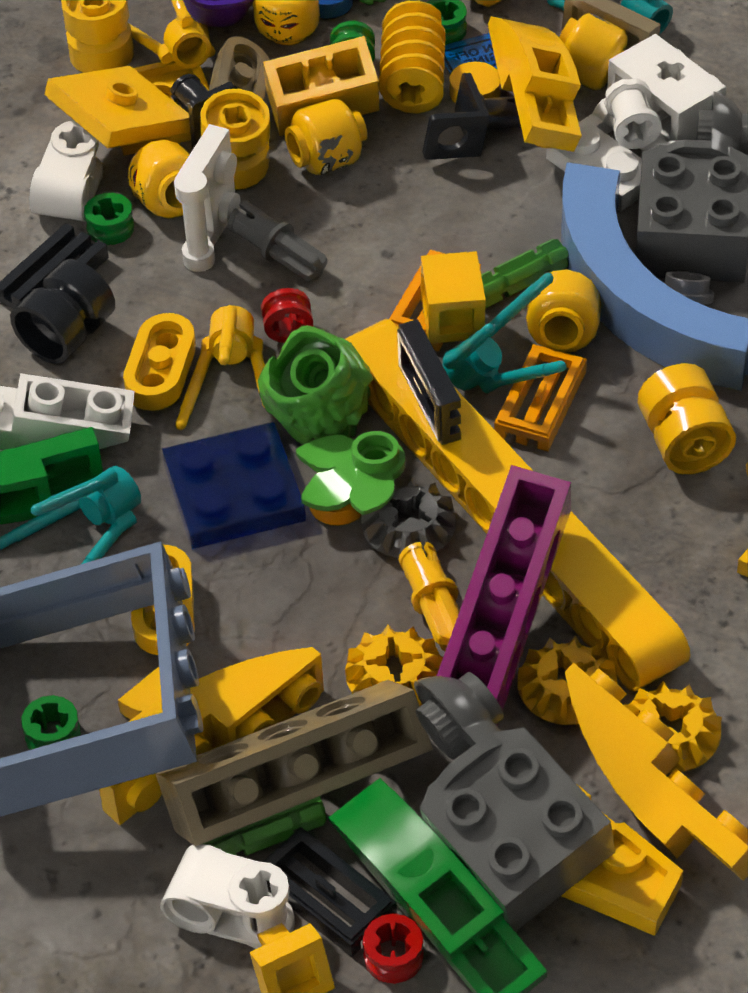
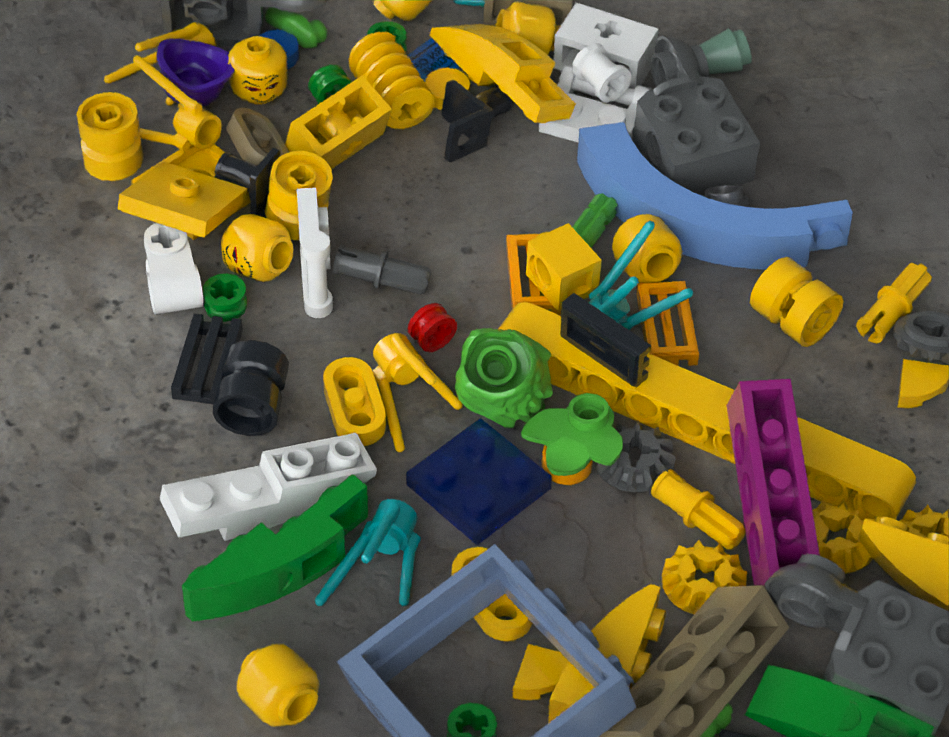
camera: 30 degrees left, 0 degrees up
(325, 136) = (365, 169): yellow head -> none

